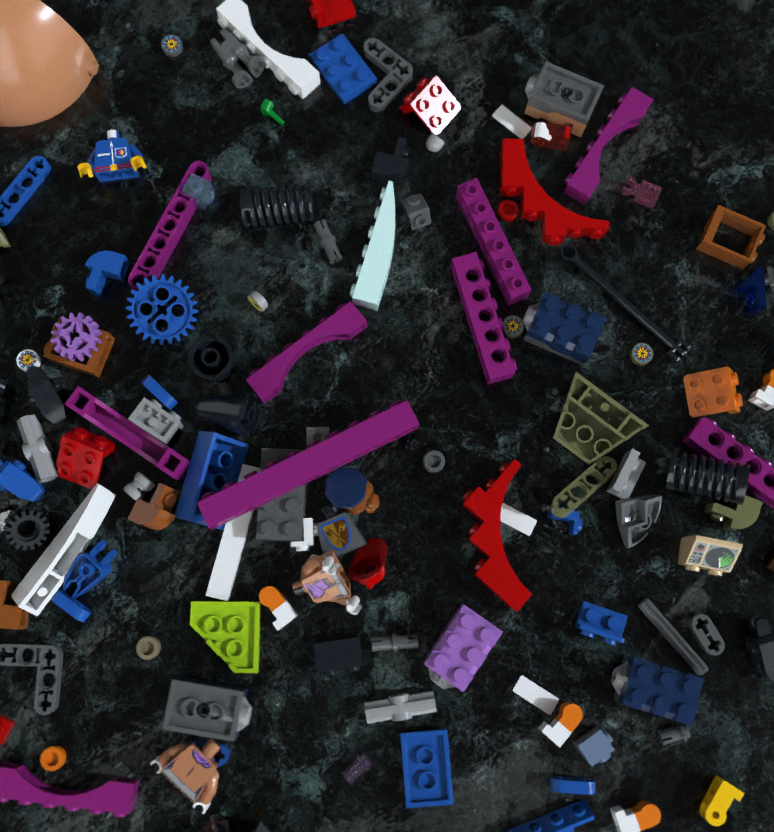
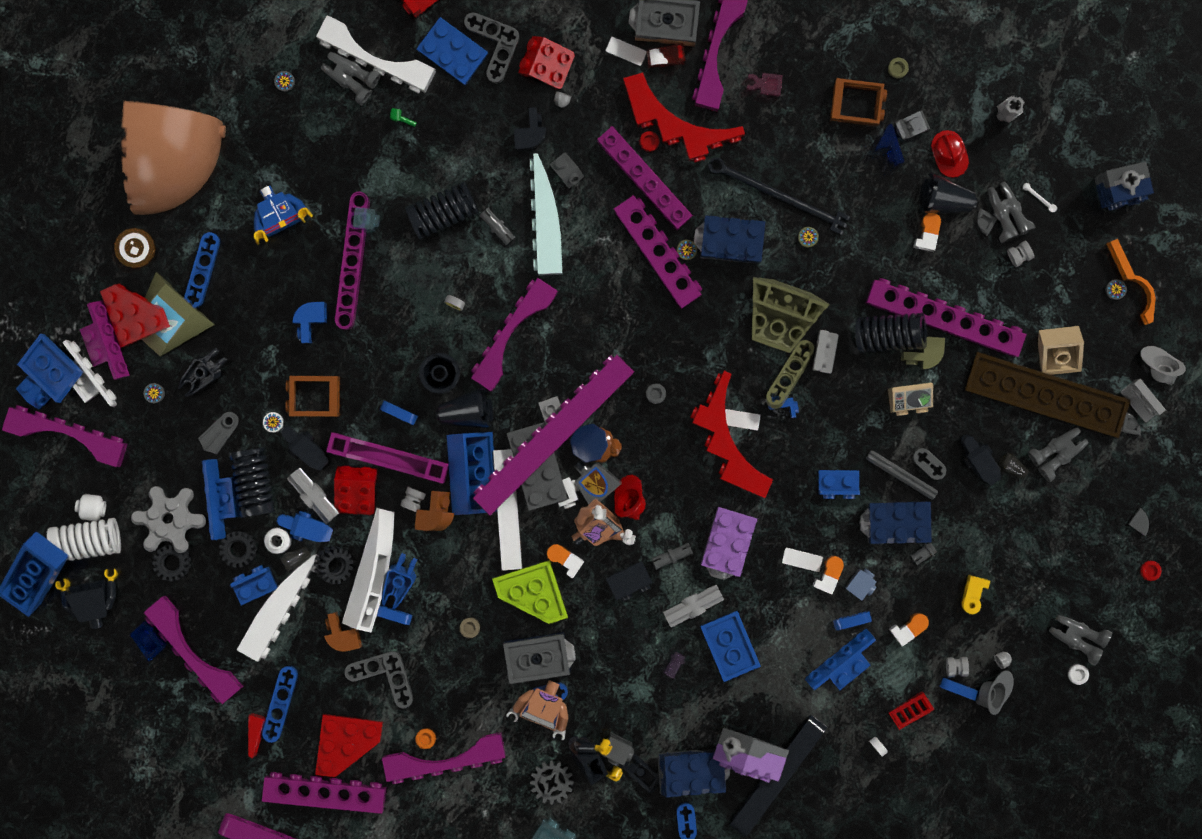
camera: 20 degrees left, 10 degrees up
(80, 345) = (312, 381): medium lavender gear -> none
(148, 294) = (391, 346): blue gear -> none
(155, 420) = (406, 438): light grey bracket -> none
(636, 516) = (843, 384): dark grey brick -> none
(712, 392) = (879, 252): orange bracket -> none

